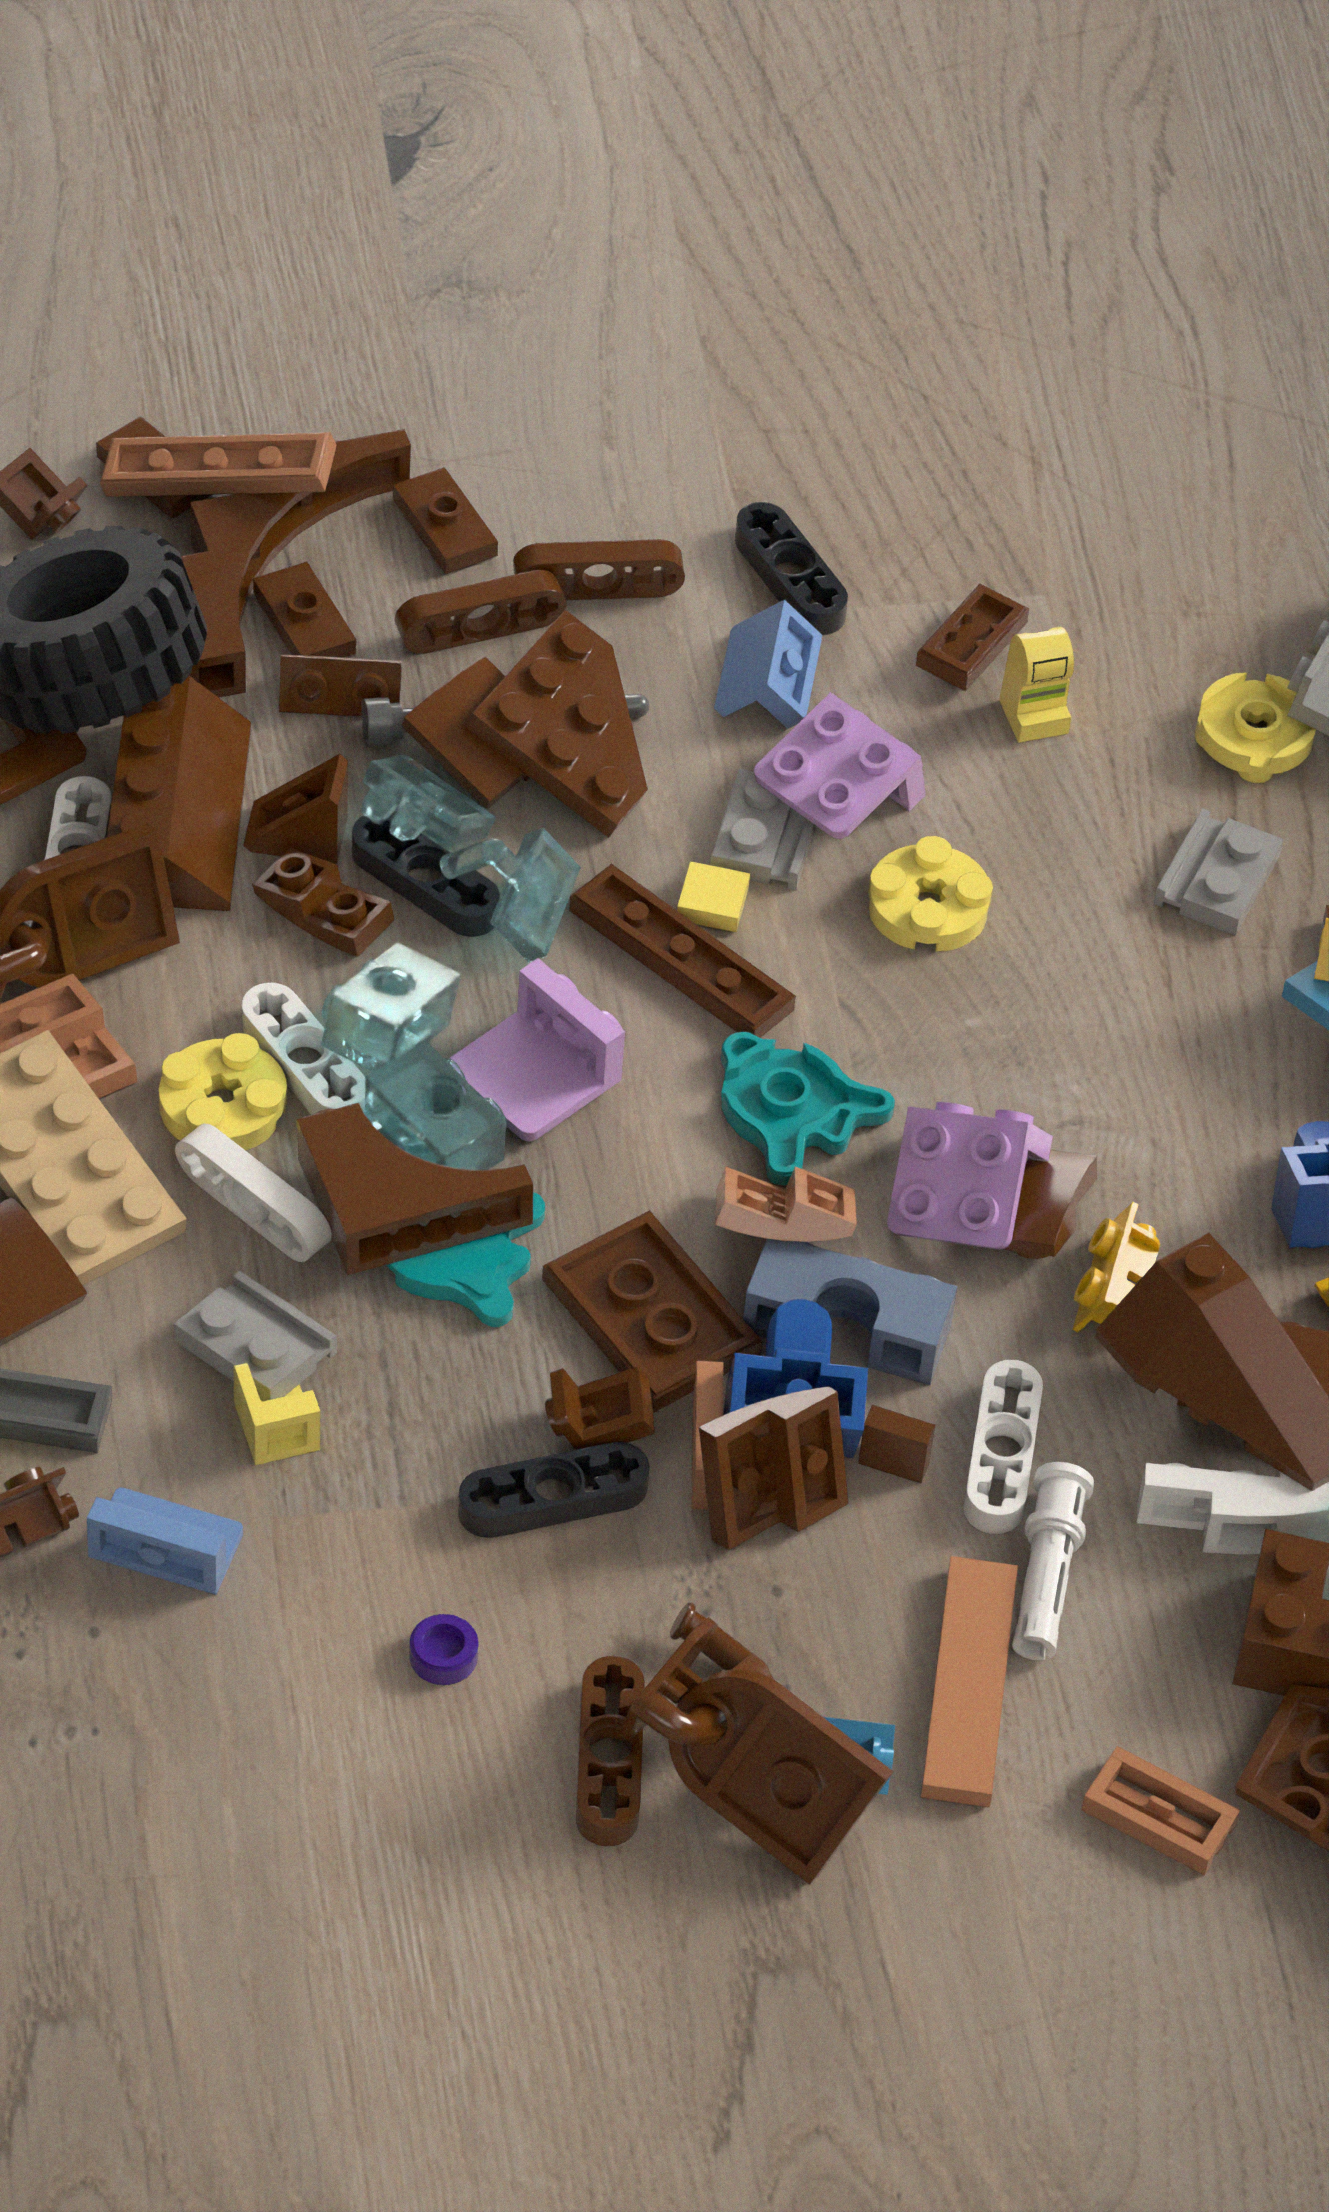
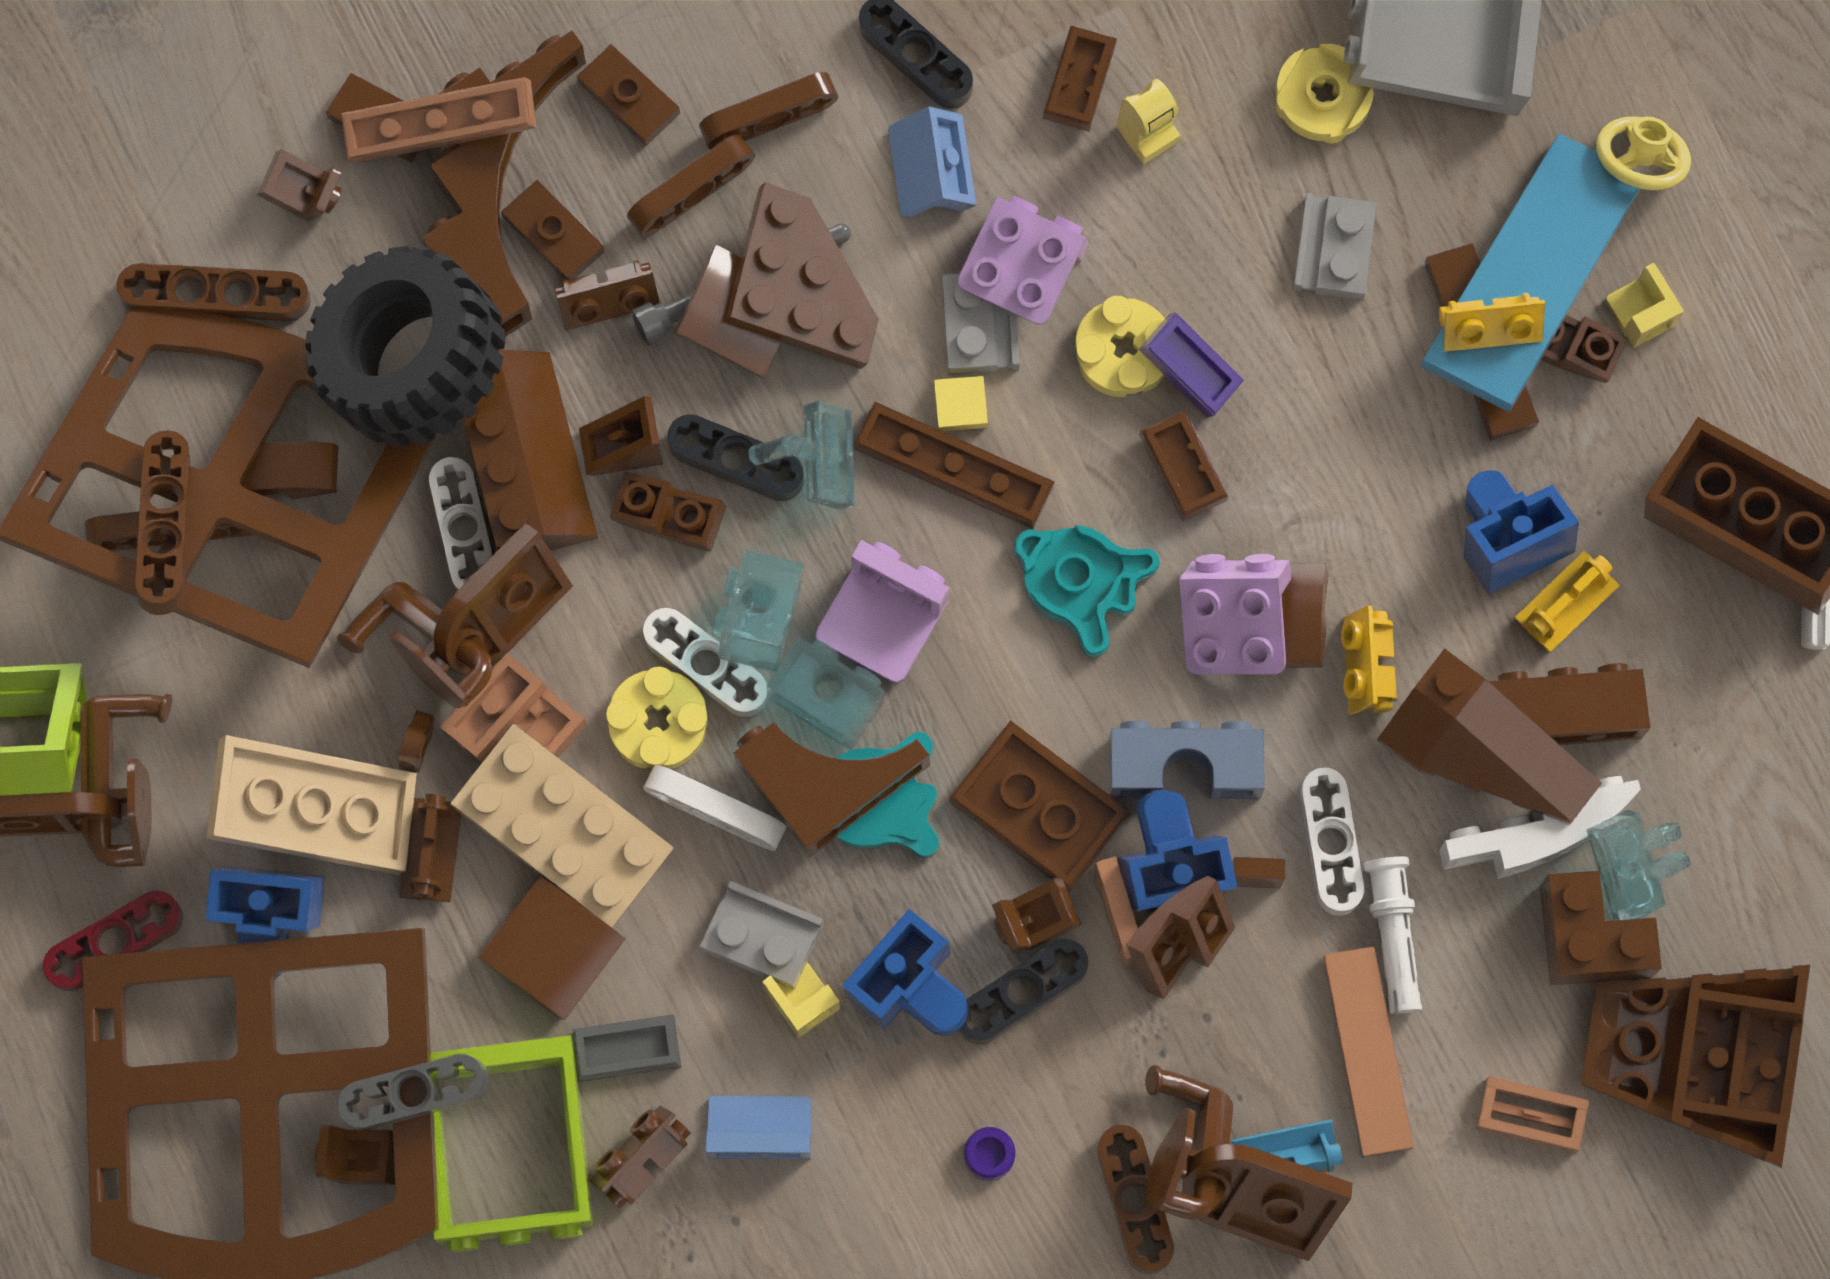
camera: 15 degrees left, 25 degrees up
(414, 1414) = (905, 977): none -> blue brick
(422, 803) = (714, 390): clear light blue hinge -> none
(803, 1212) = (1115, 695): nougat slope -> none
(958, 1022) = (1183, 465): none -> reddish brown plate
(1003, 925) = (1191, 364): none -> dark purple tile

